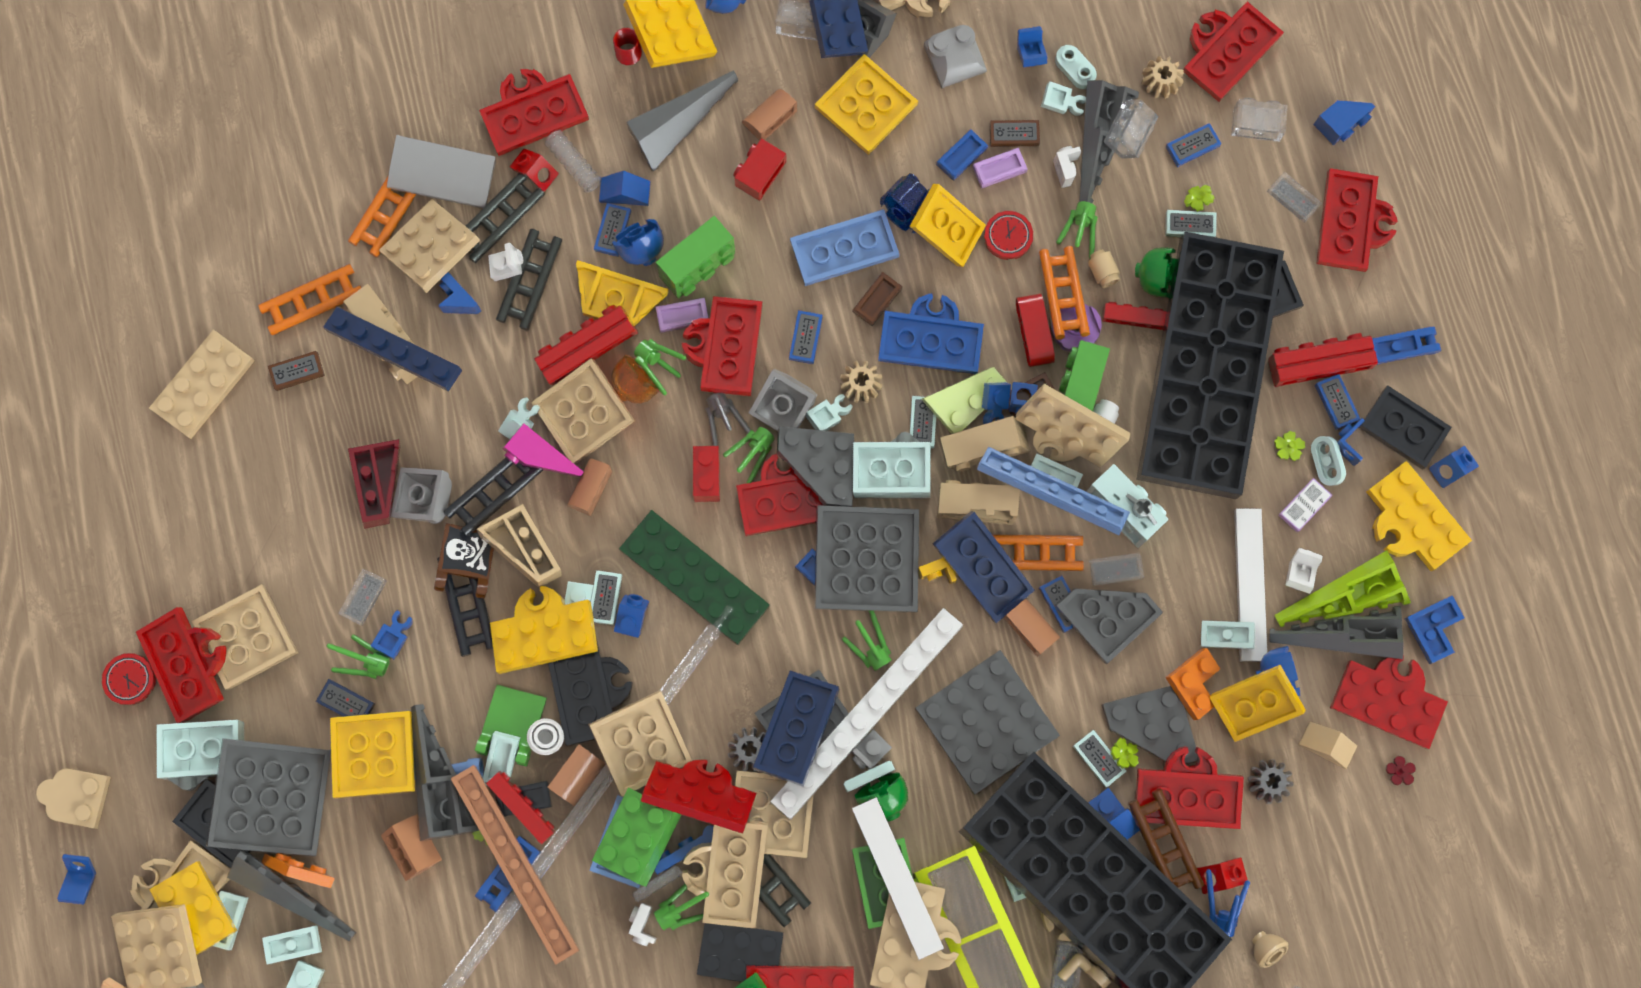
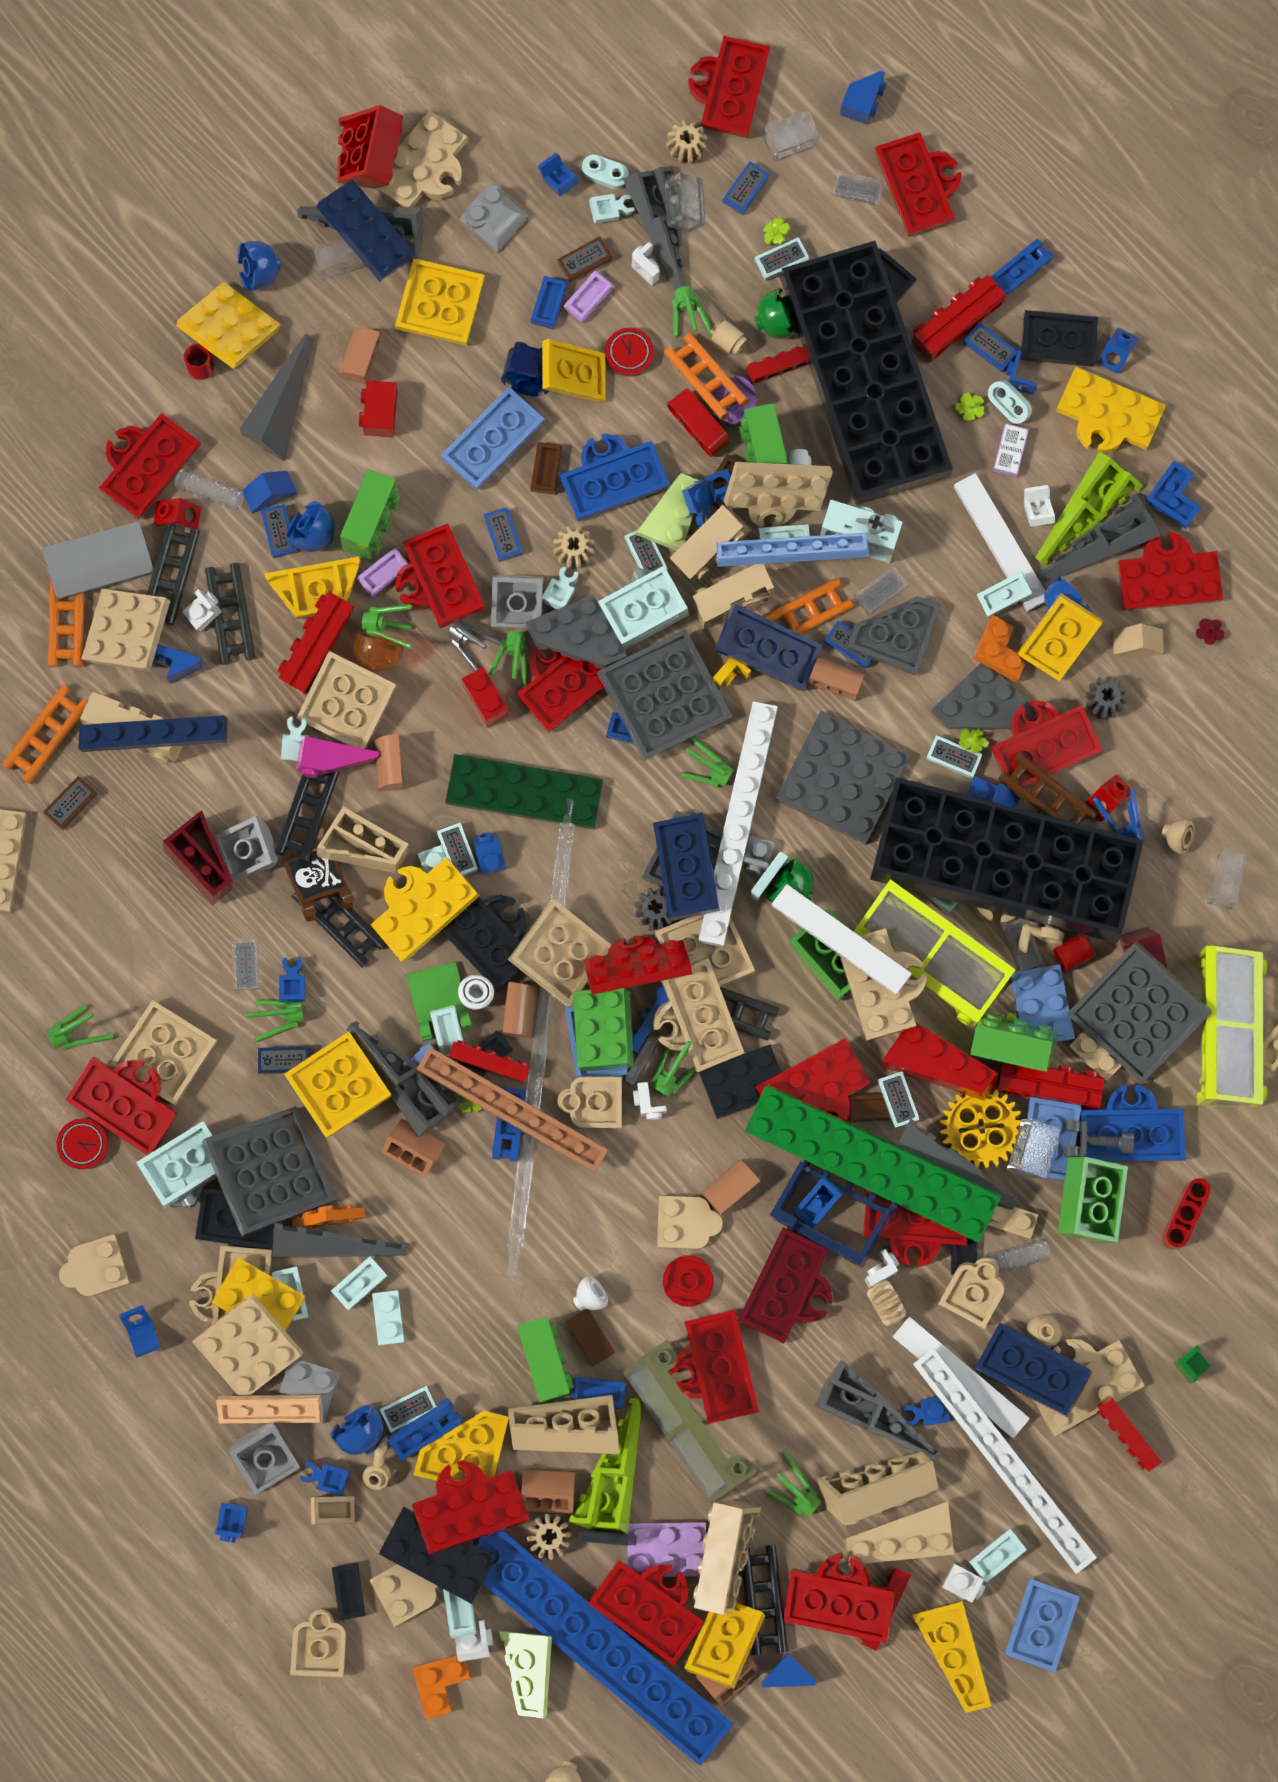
camera: 30 degrees left, 0 degrees up
(169, 570) = (61, 1032): none -> bright green plant
(594, 896) = (593, 1101): none -> tan plate

